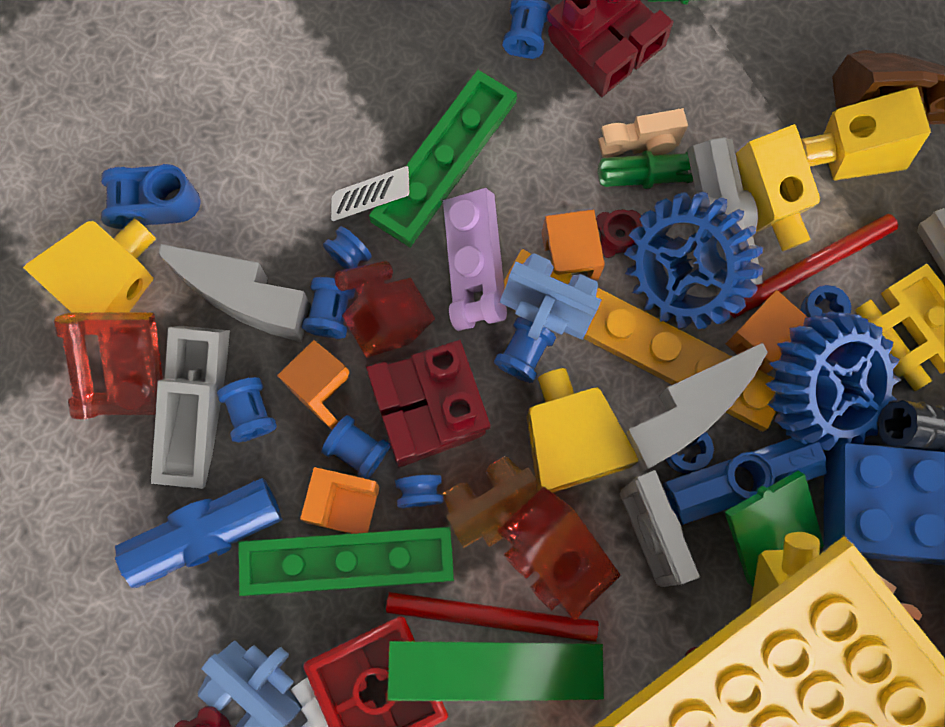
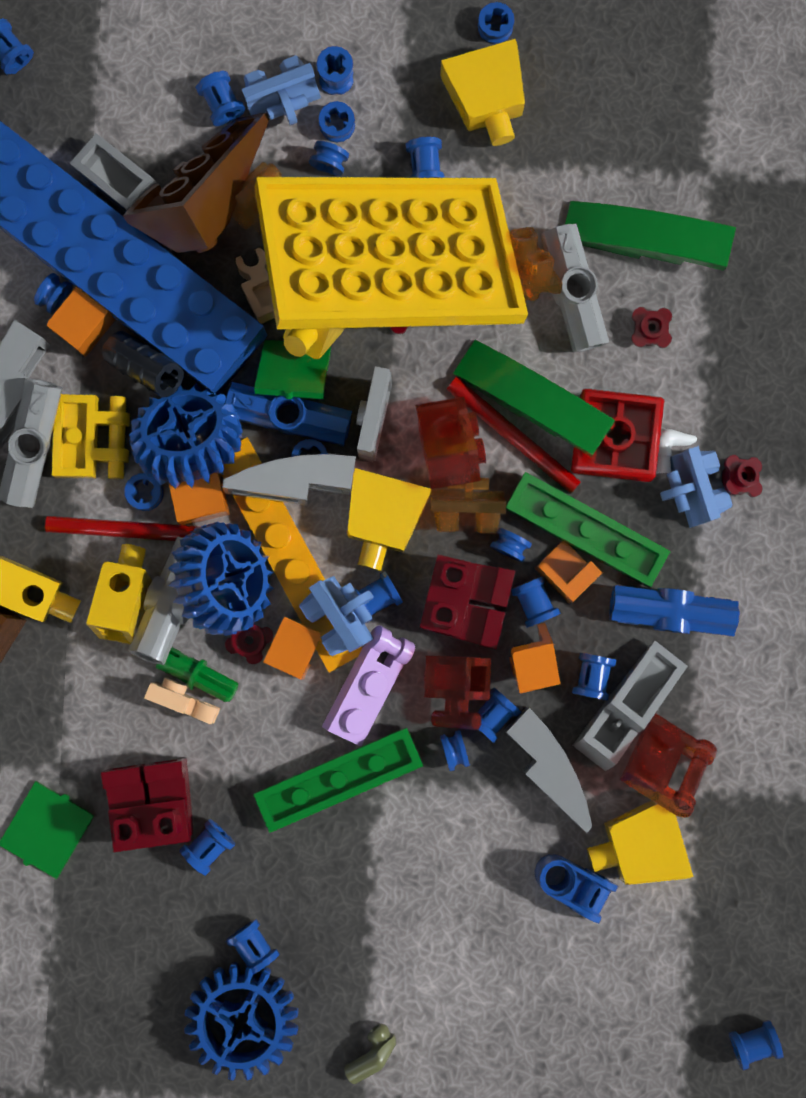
camera: 145 degrees left, 10 degrees up
(370, 193) = (411, 784): white sticker -> none

